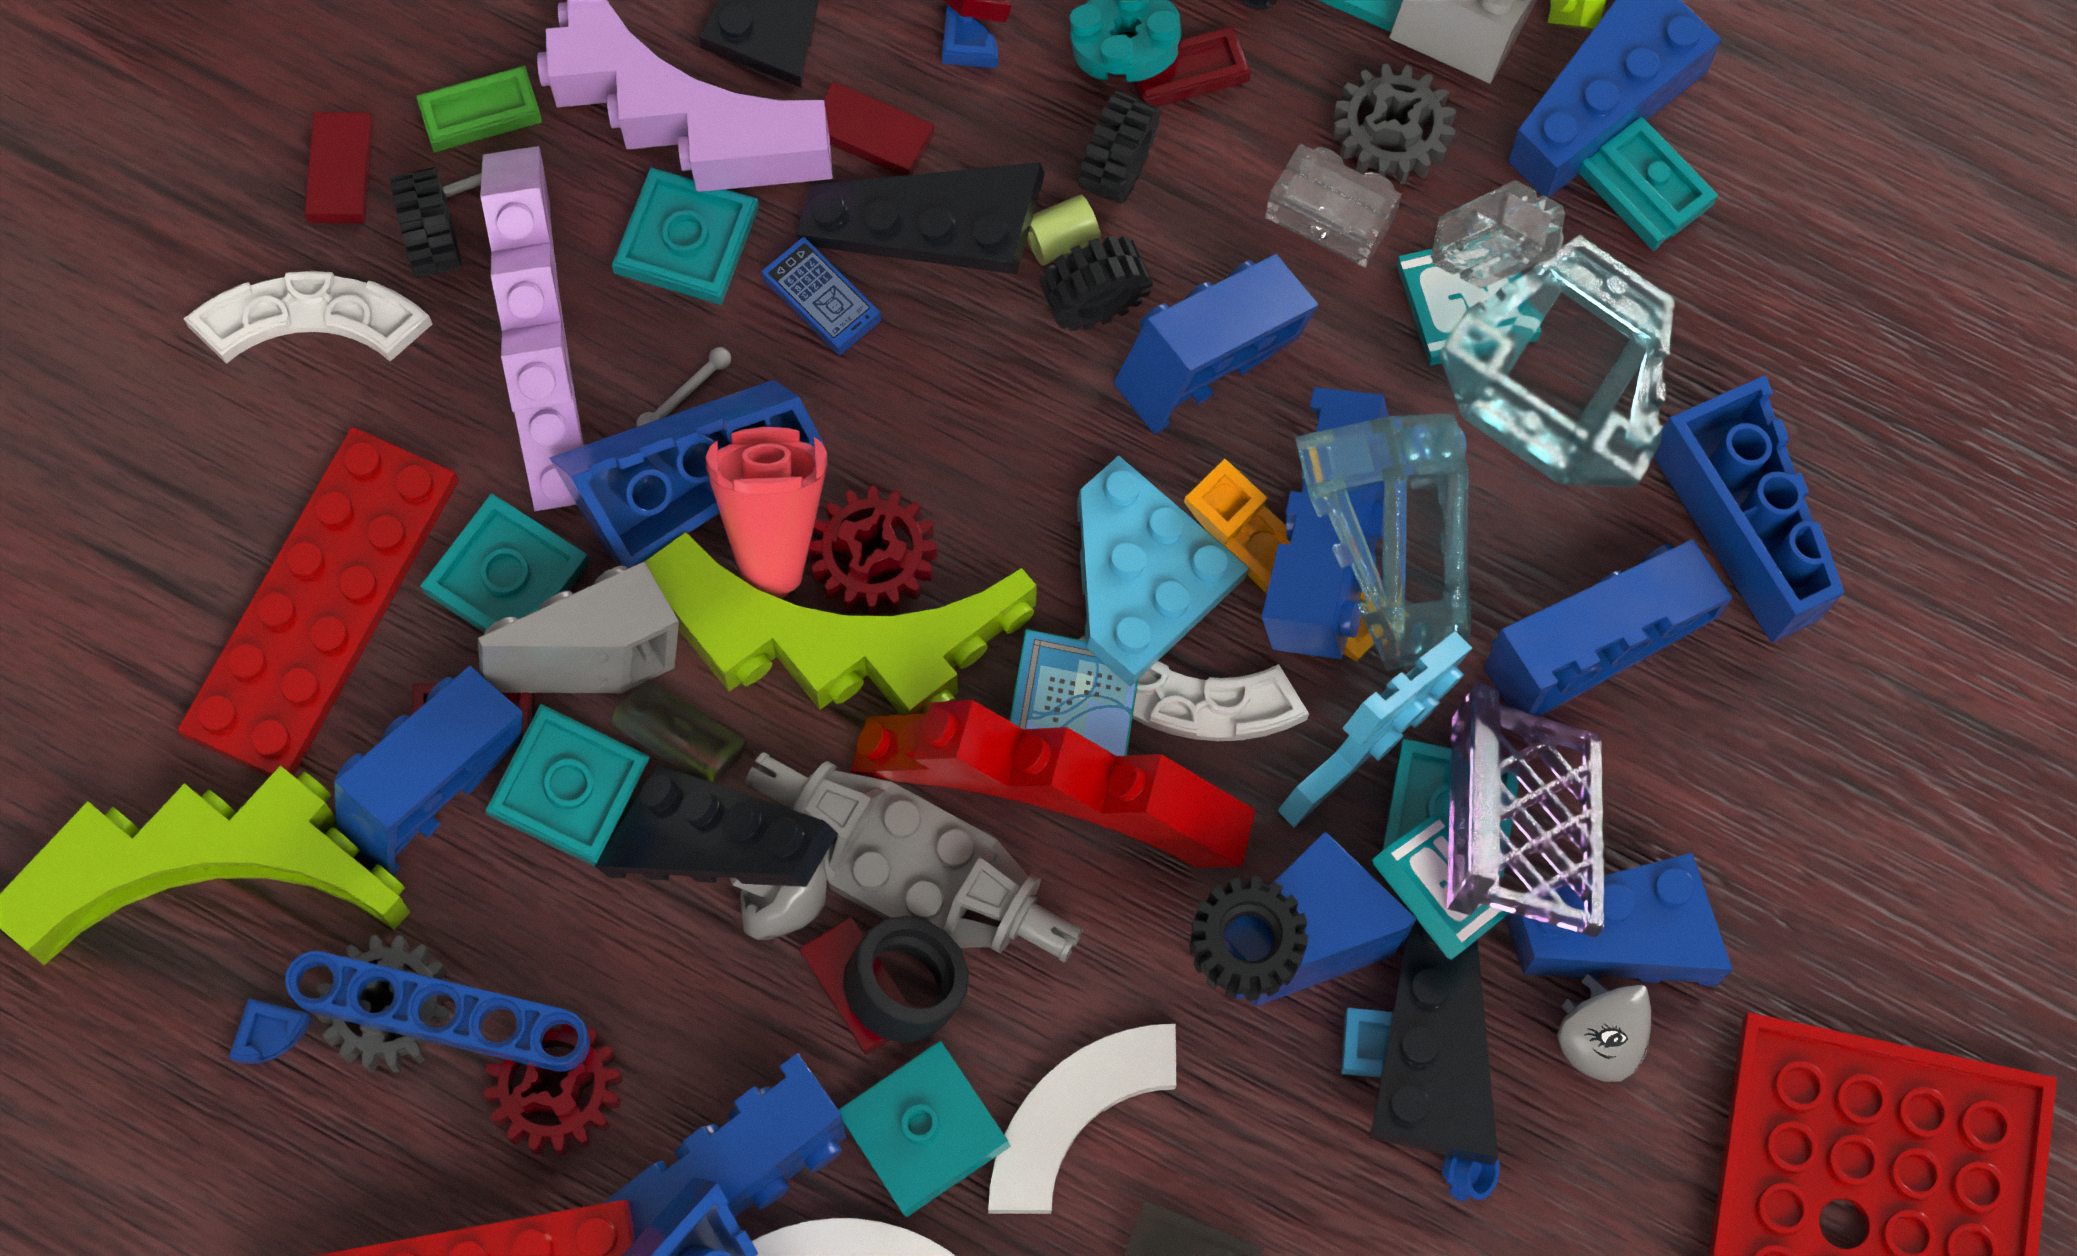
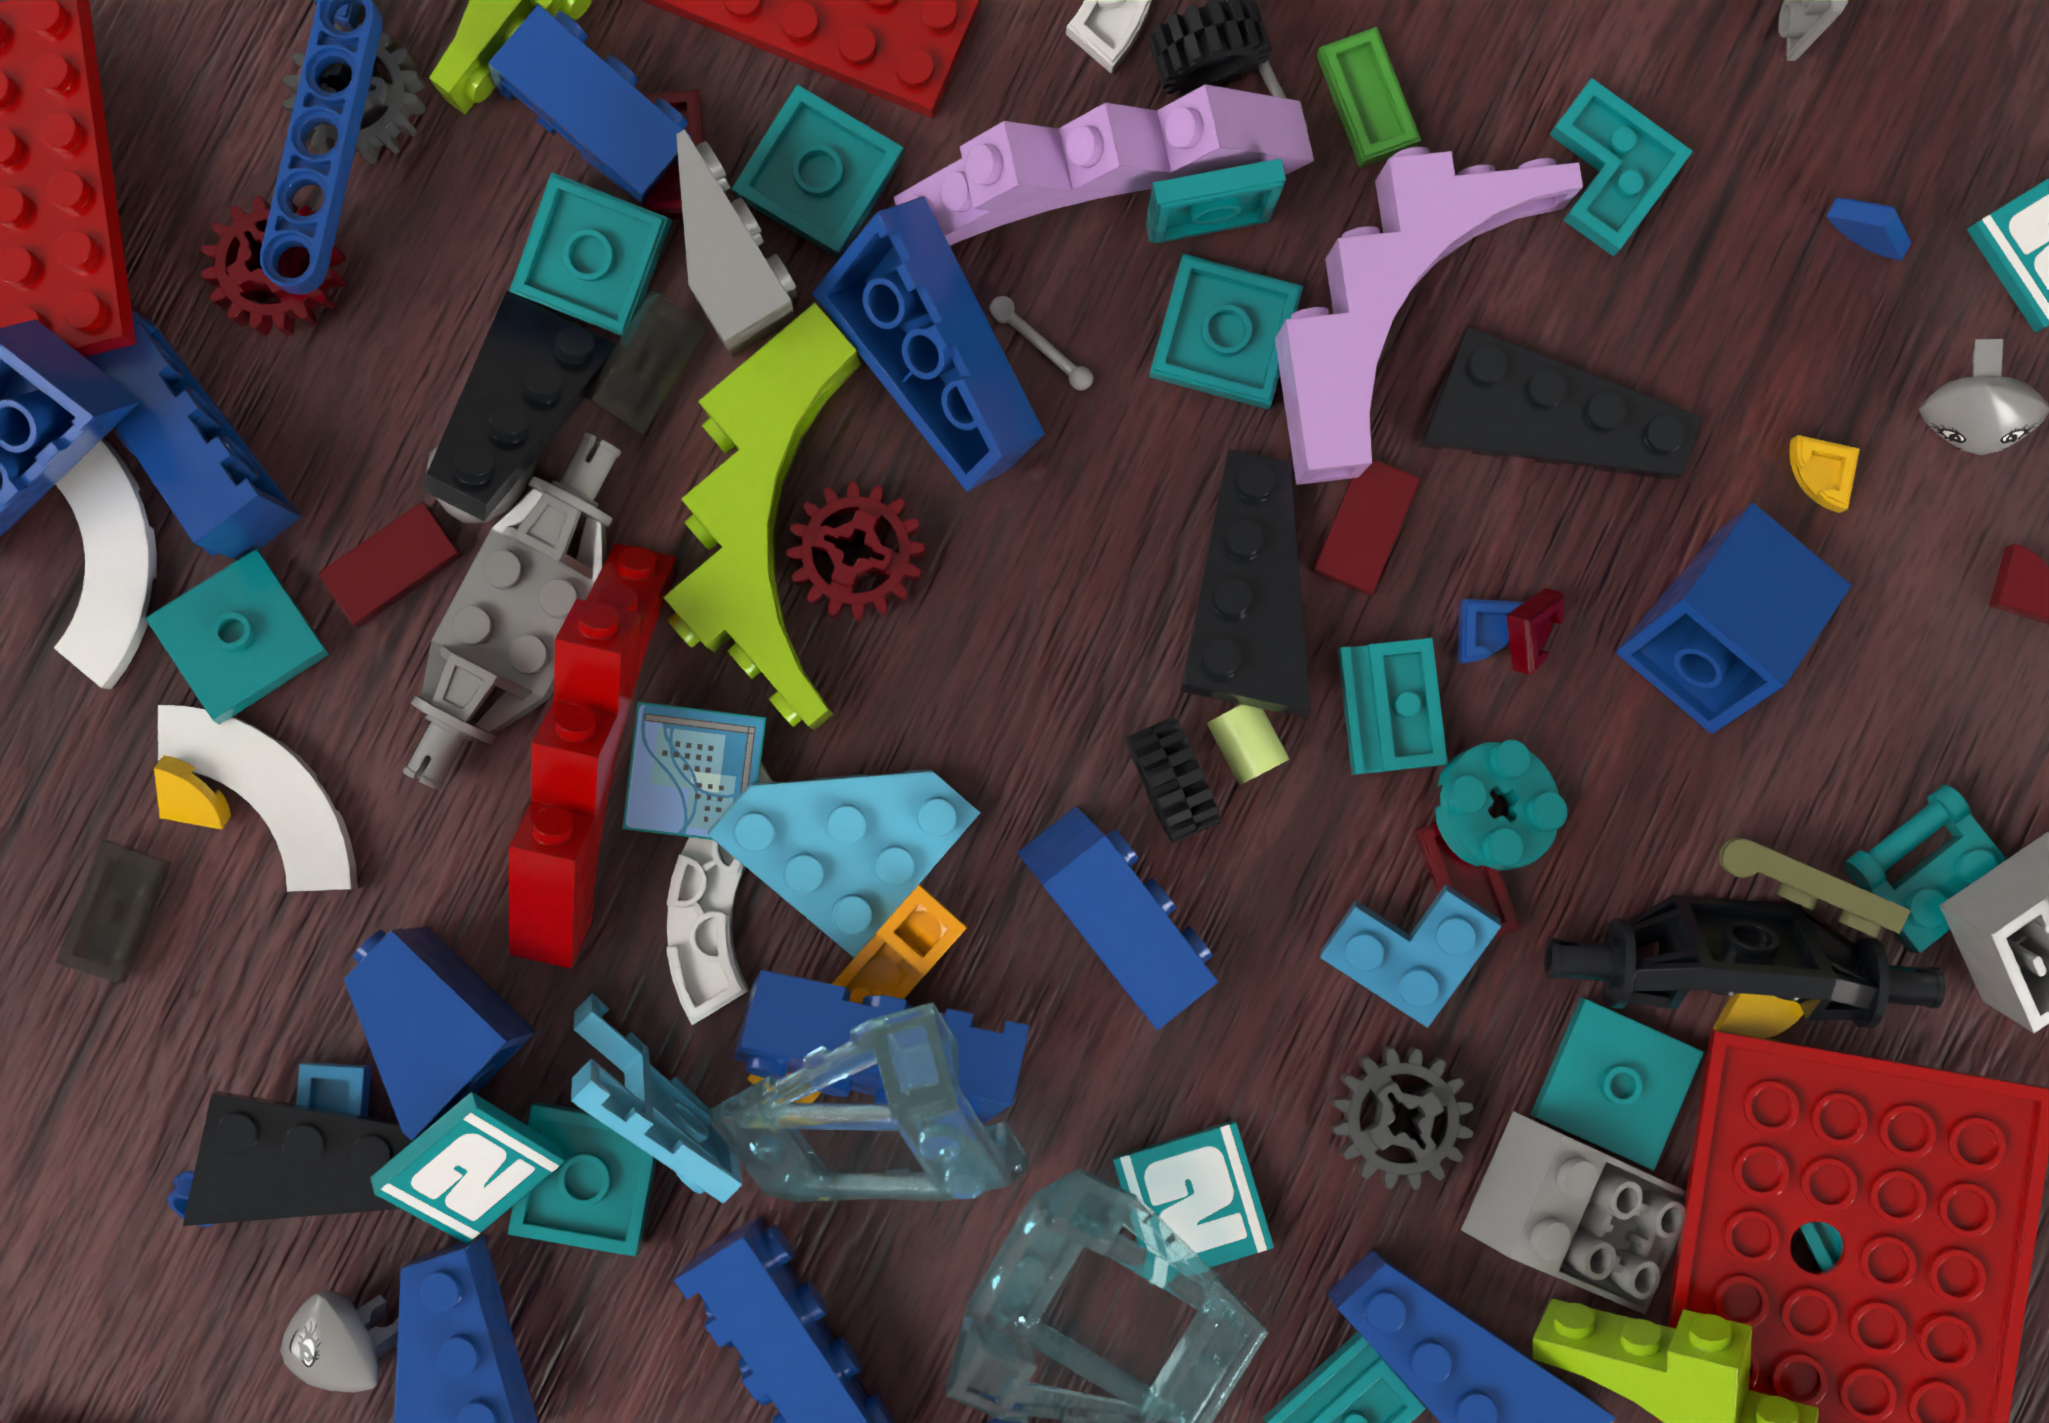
camera: 90 degrees right, 15 degrees up
(573, 222) = (1214, 201): none -> teal tile
(768, 502) = (886, 428): coral cone -> none
(821, 296) = (1159, 482): tile -> none
(925, 943) = (356, 652): black tyre -> none
(1034, 114) = (1392, 706): none -> teal plate
(1080, 1180) = (186, 797): none -> yellow tile
(1119, 147) = (1344, 800): black tyre -> none
(1248, 976) = (330, 959): black tyre -> none
(1265, 107) = (1414, 969): none -> dark azure plate
(1333, 203) = (1296, 1048): clear brick -> none
(1477, 793) = (546, 1207): clear purple fence -> none
(1498, 235) = (1238, 1239): clear brick -> none

